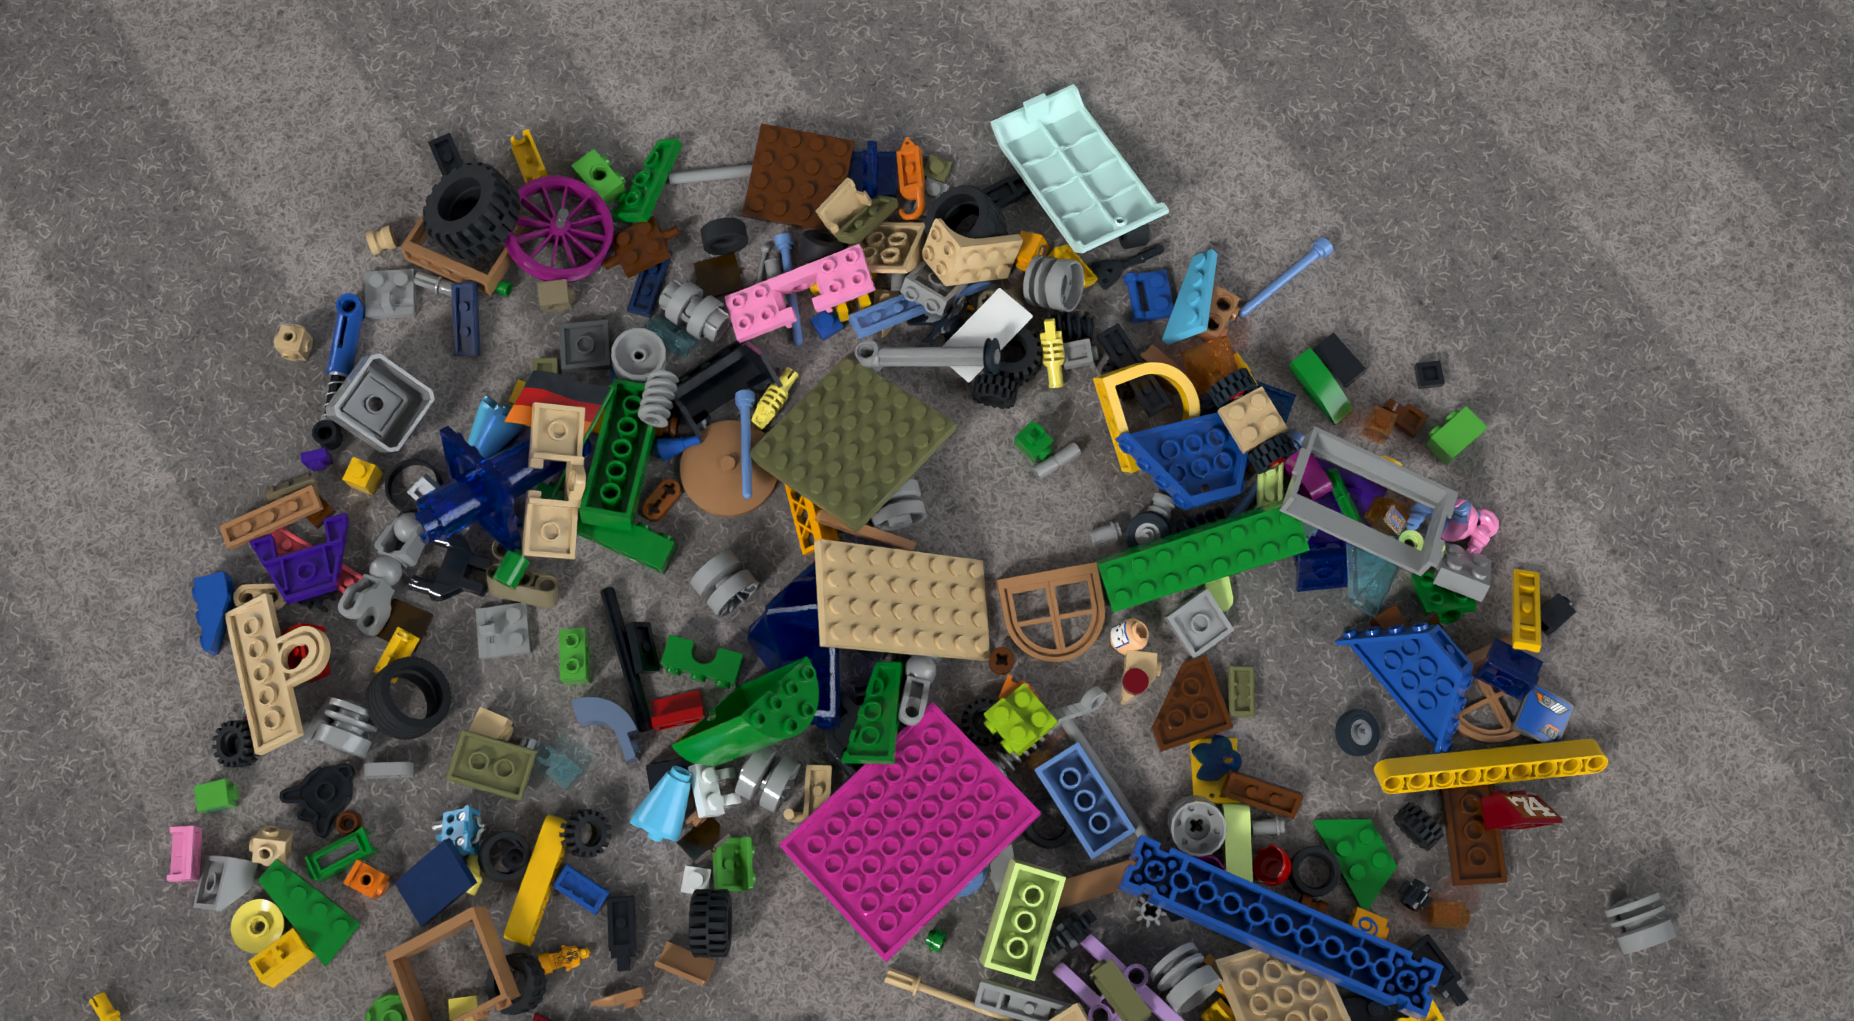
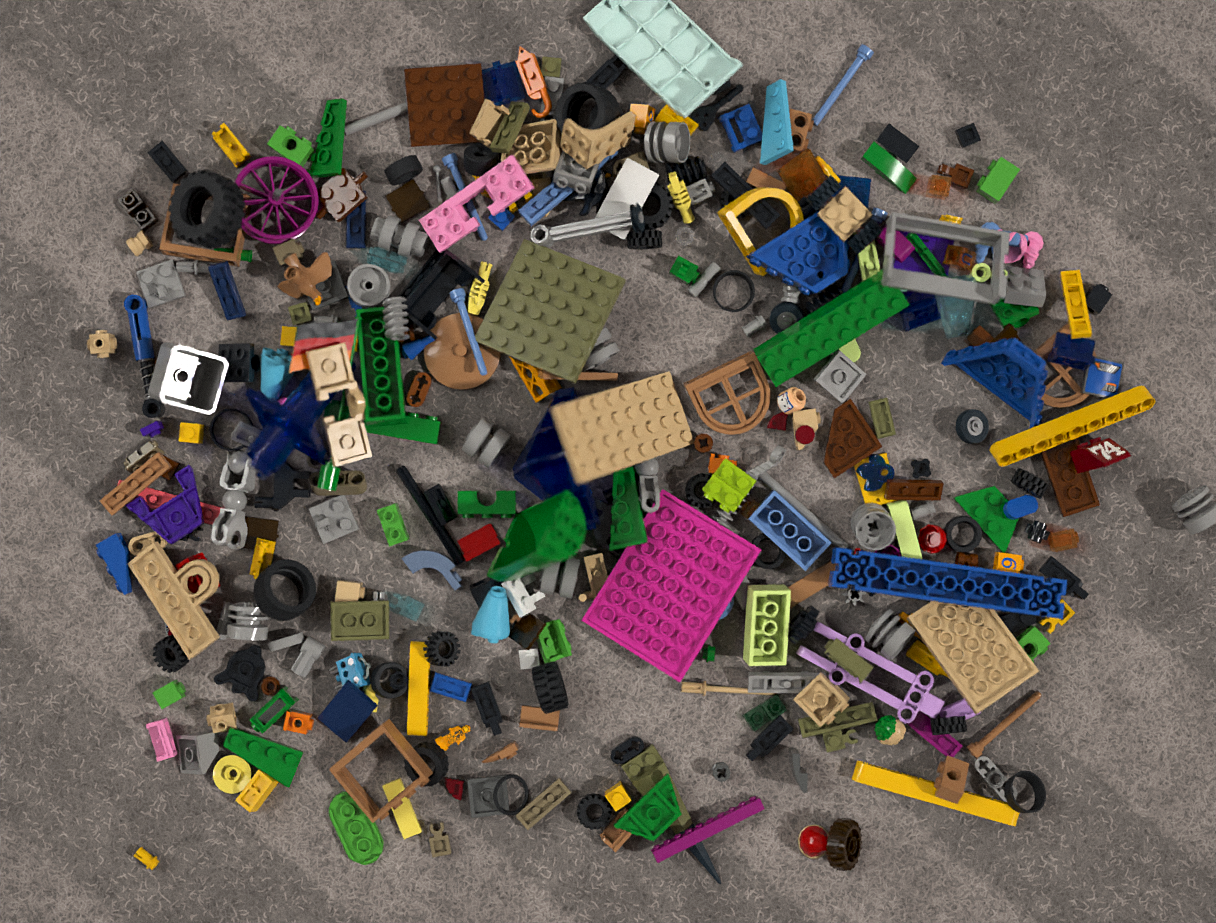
camera: 15 degrees left, 15 degrees up
(394, 203) = (138, 210): none -> dark brown slope
(414, 793) = (309, 653): none -> light grey piece
(450, 408) = (241, 362): none -> black plate
(565, 328) = (303, 280): none -> medium nougat animal
(1091, 461) = (746, 278): none -> black tyre
(1105, 661) = (778, 422): none -> dark red tile
(1272, 765) = (924, 464): none -> black plate
(1399, 856) = (1020, 507): none -> blue tile

